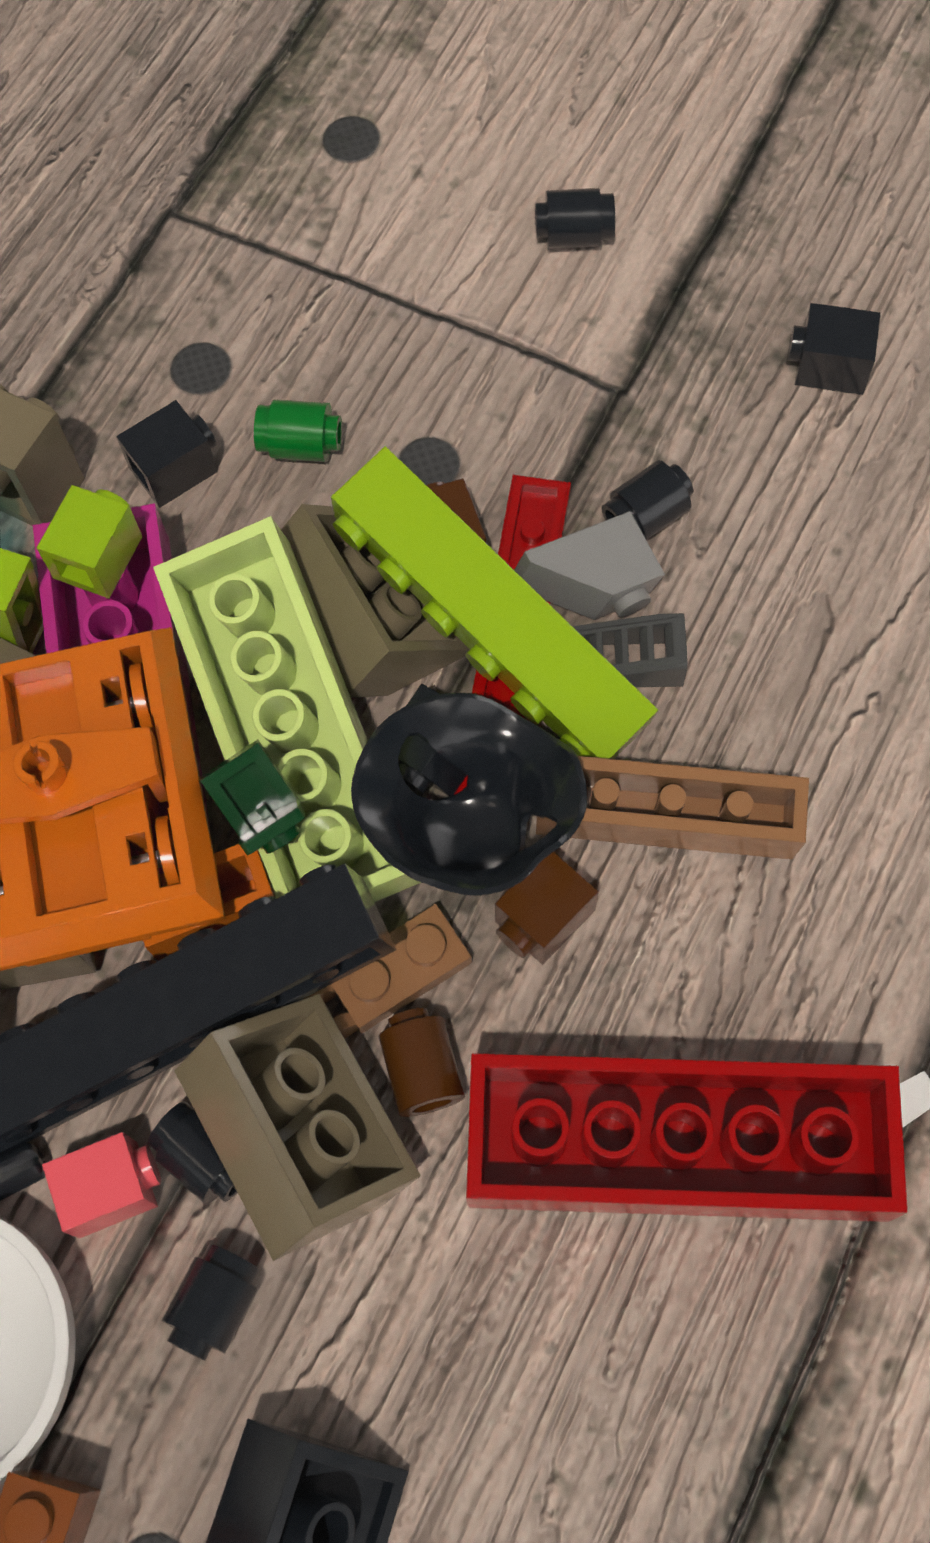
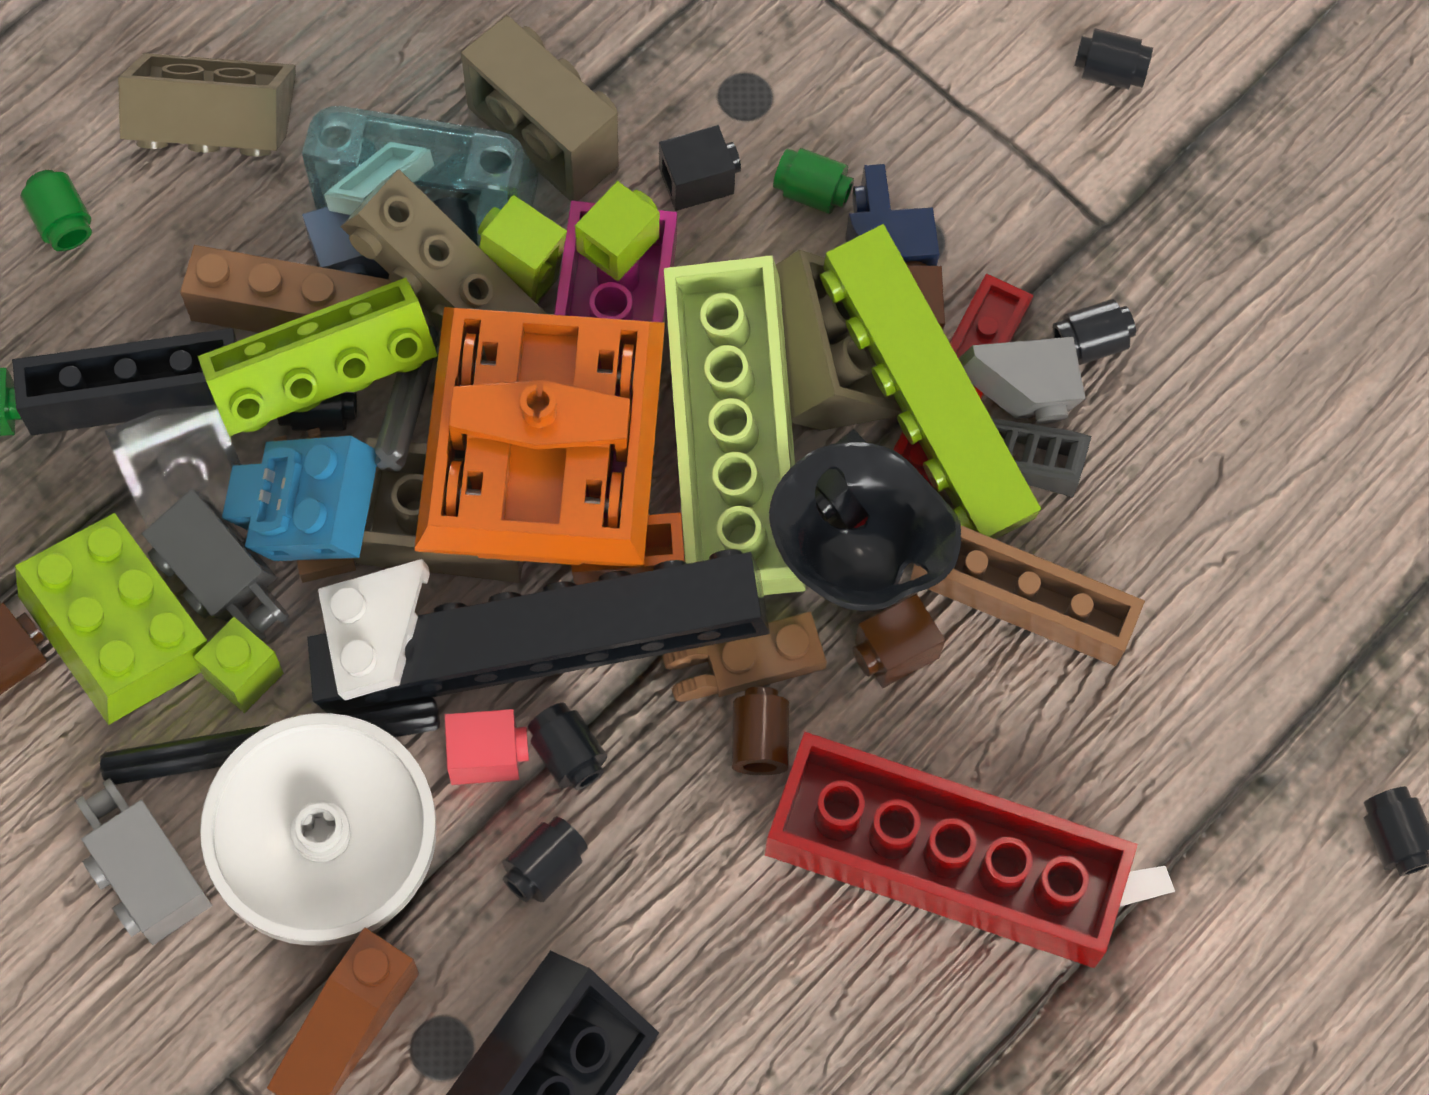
camera: 10 degrees right, 0 degrees up
(255, 799) = (694, 481): dark green bracket -> none
(295, 1124) = (651, 743): dark tan brick -> none
(418, 447) = (909, 228): none -> dark blue brick
(835, 348) = (1301, 245): black brick -> none

